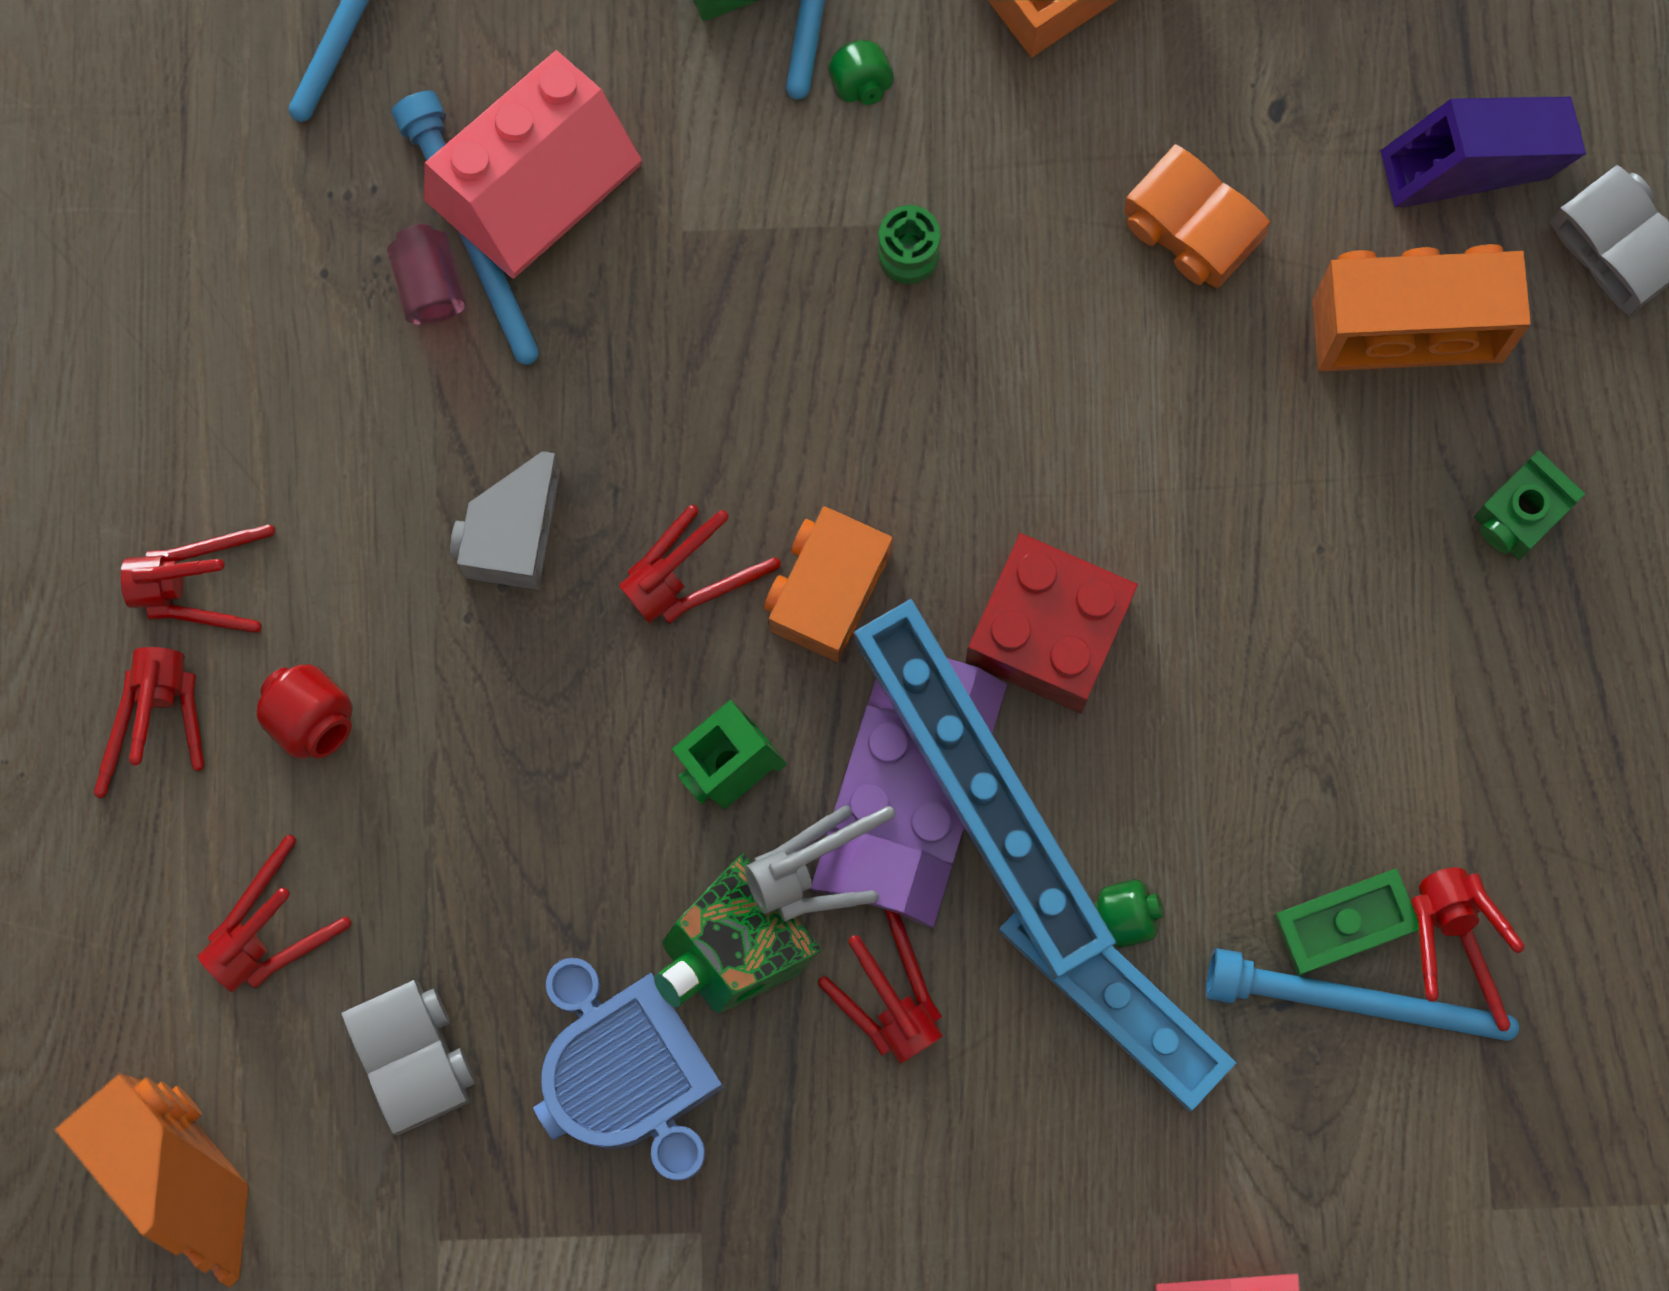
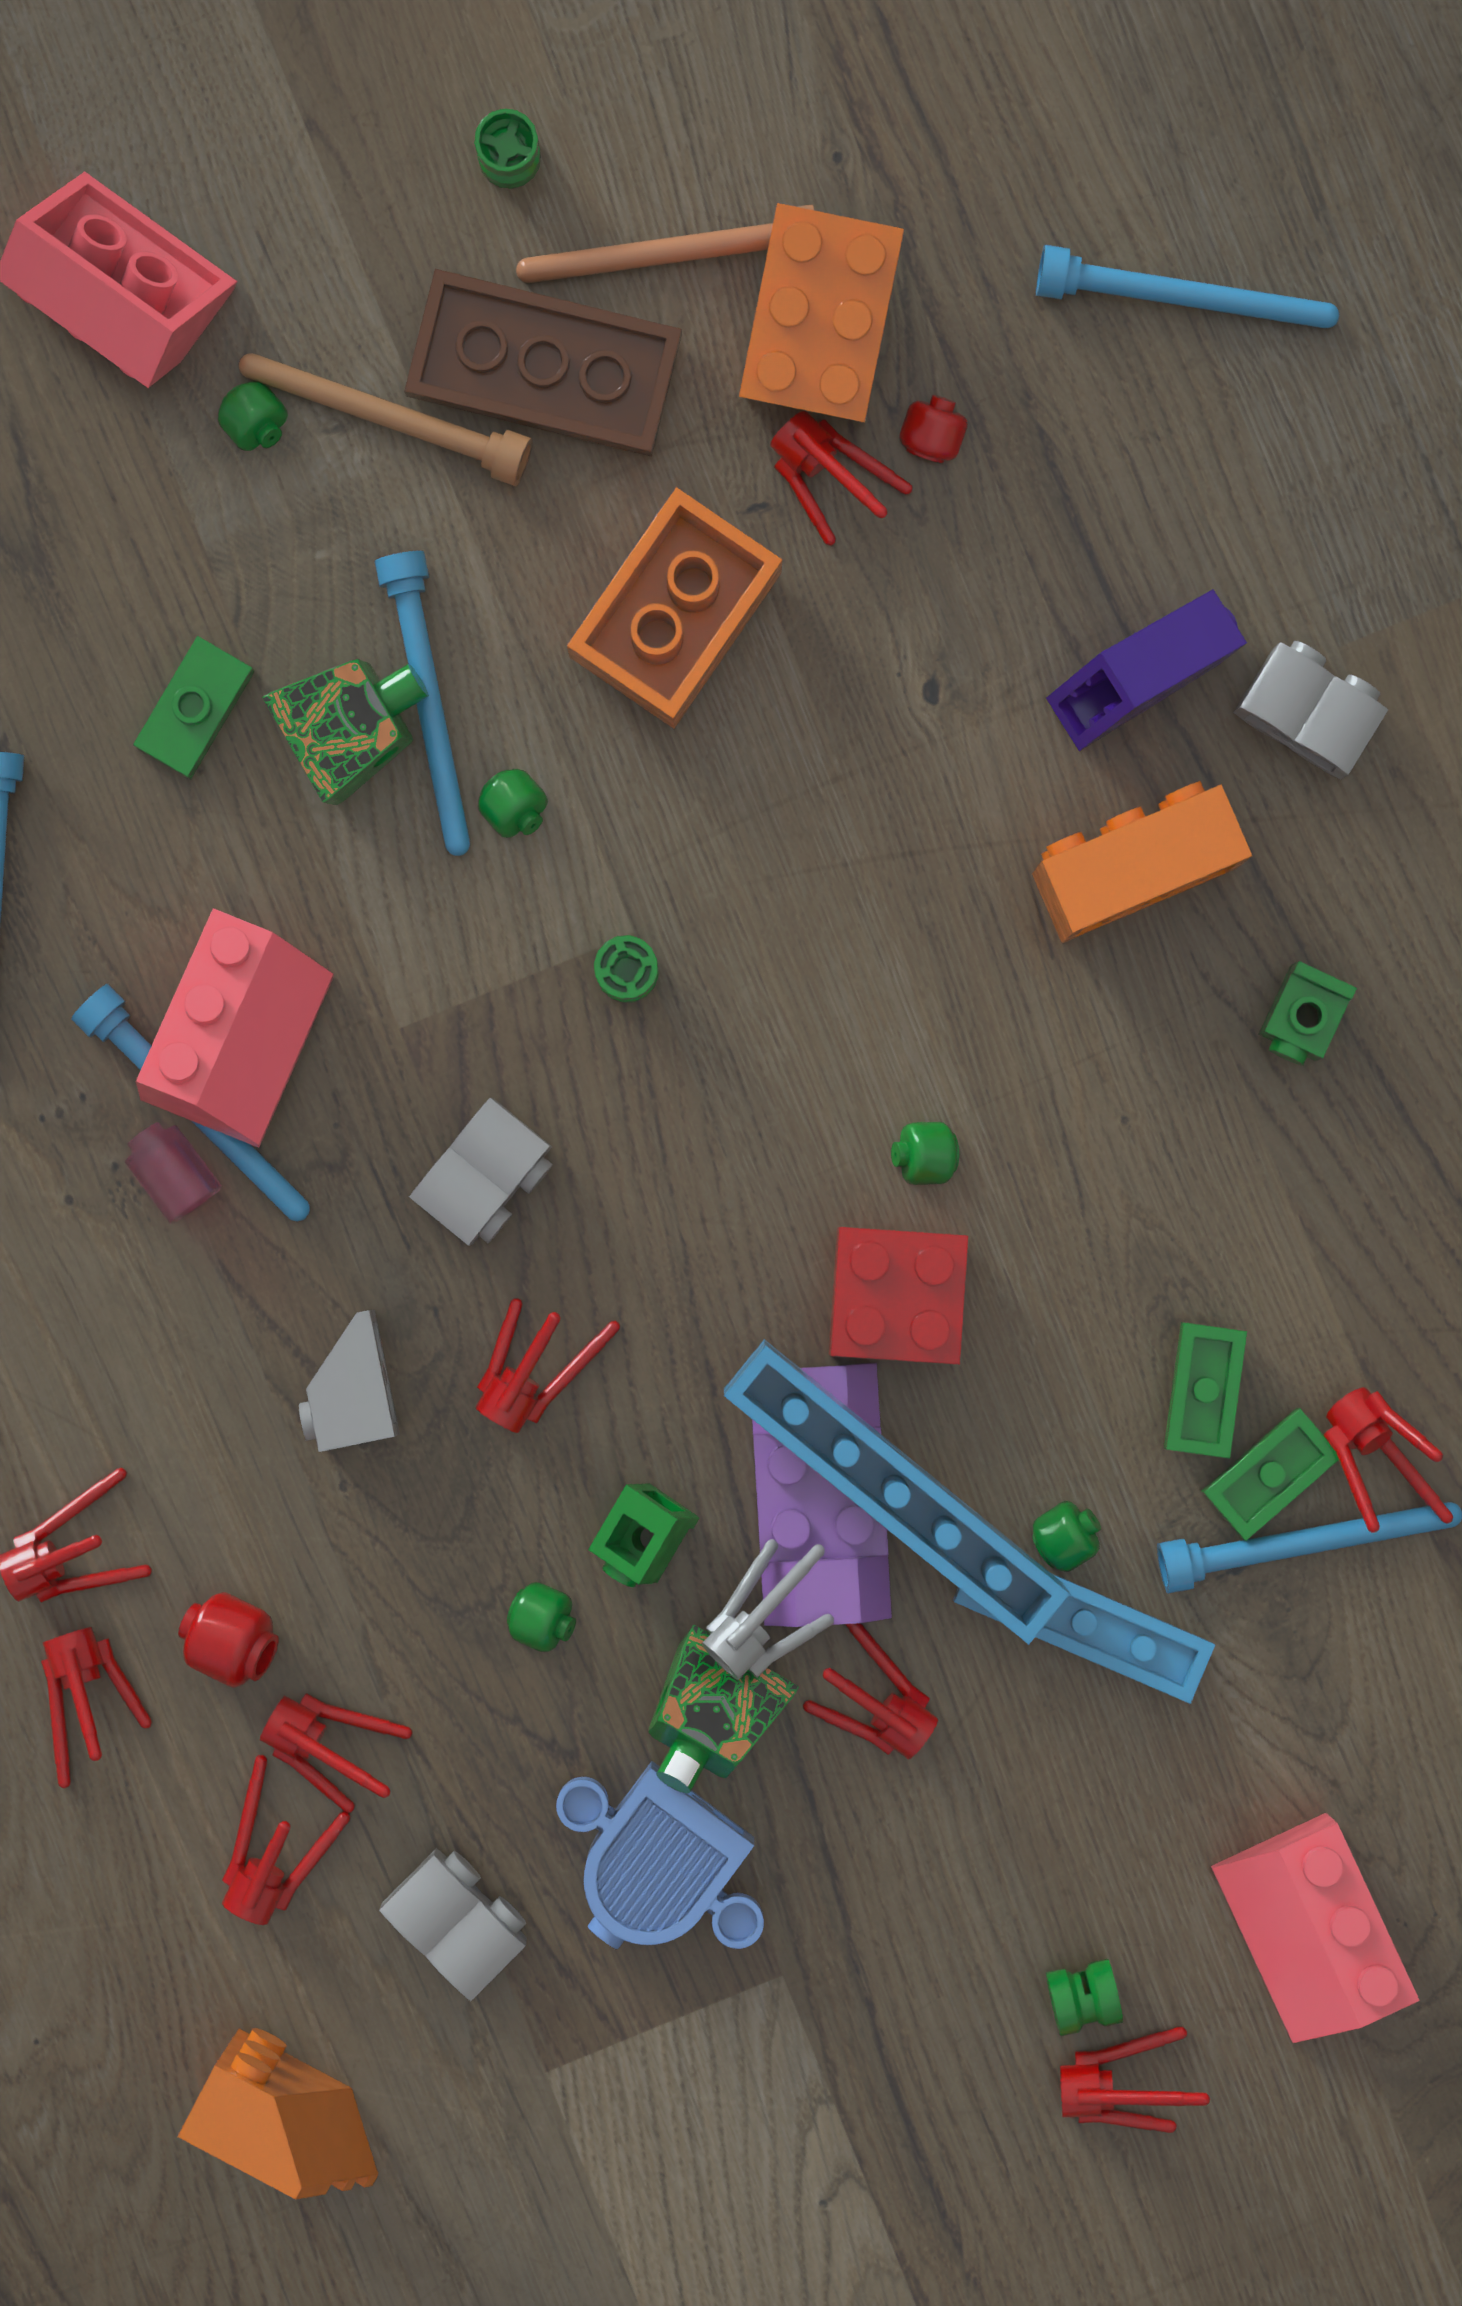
camera: 25 degrees left, 10 degrees up
(333, 822) = (297, 1735): none -> red plant
(603, 804) = (540, 1617): none -> green piece
(708, 376) = (482, 1173): none -> light grey brick
(829, 583) = (674, 1333): orange brick -> none
(1124, 512) = (926, 1153): none -> green piece
(1195, 218) = (891, 840): orange brick -> none
(1311, 820) = (1205, 1390): none -> green plate

